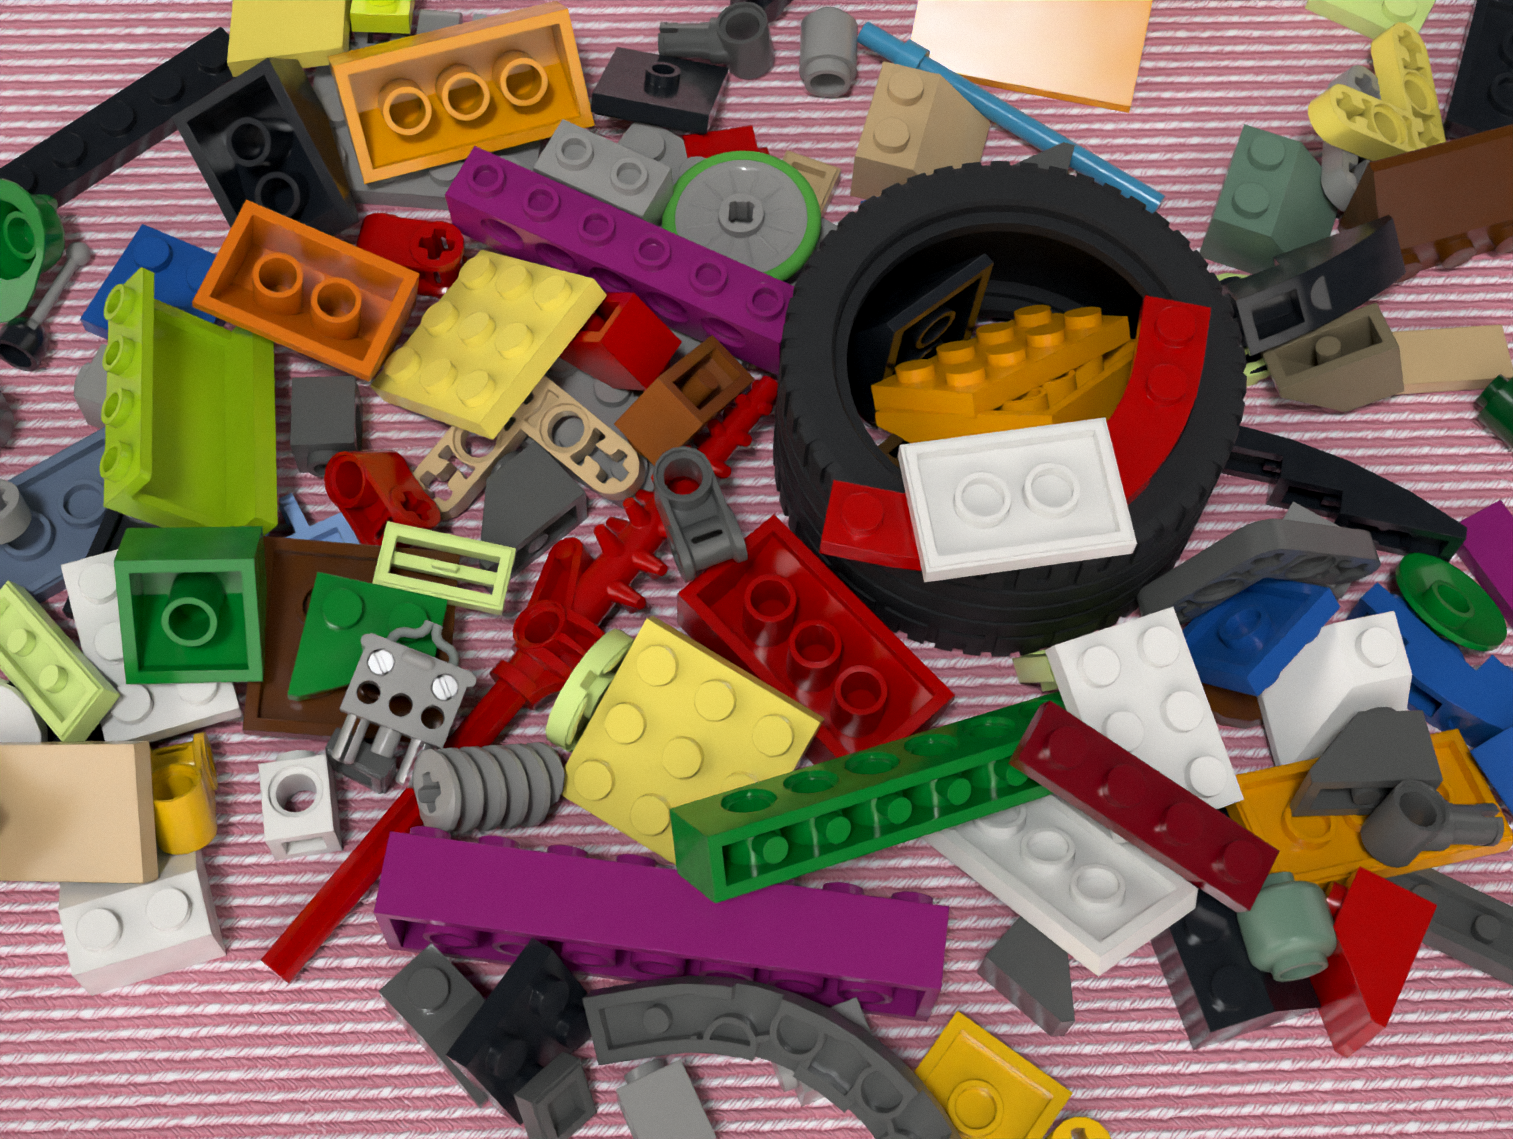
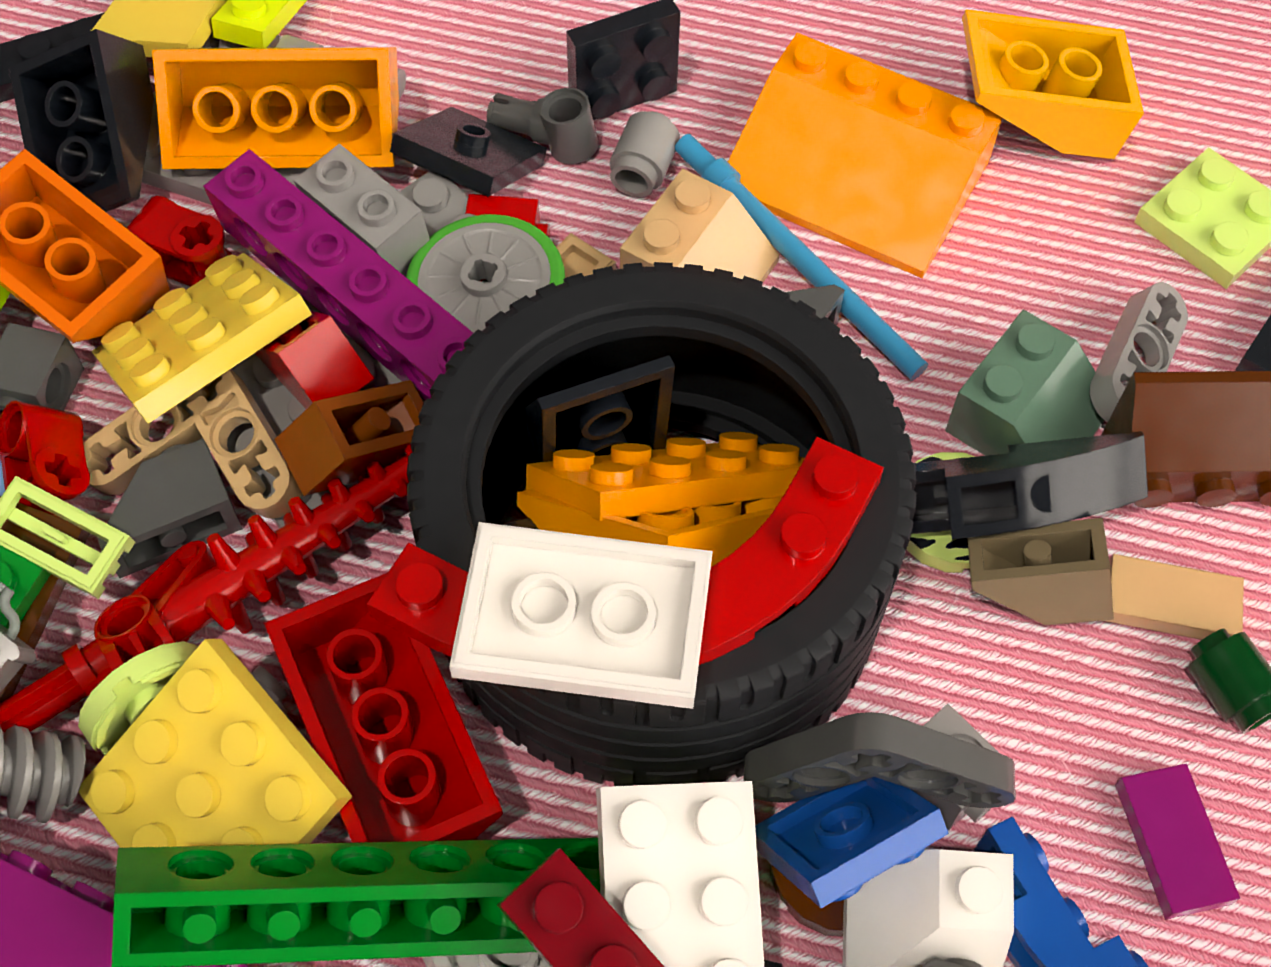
camera: 20 degrees right, 5 degrees down
(697, 524) = (305, 558): dark grey piece -> none
(1344, 494) = (1022, 718): black slope -> none
(1408, 107) = (1211, 297): light yellow beam -> none
(1450, 602) = (1093, 862): green dish -> none

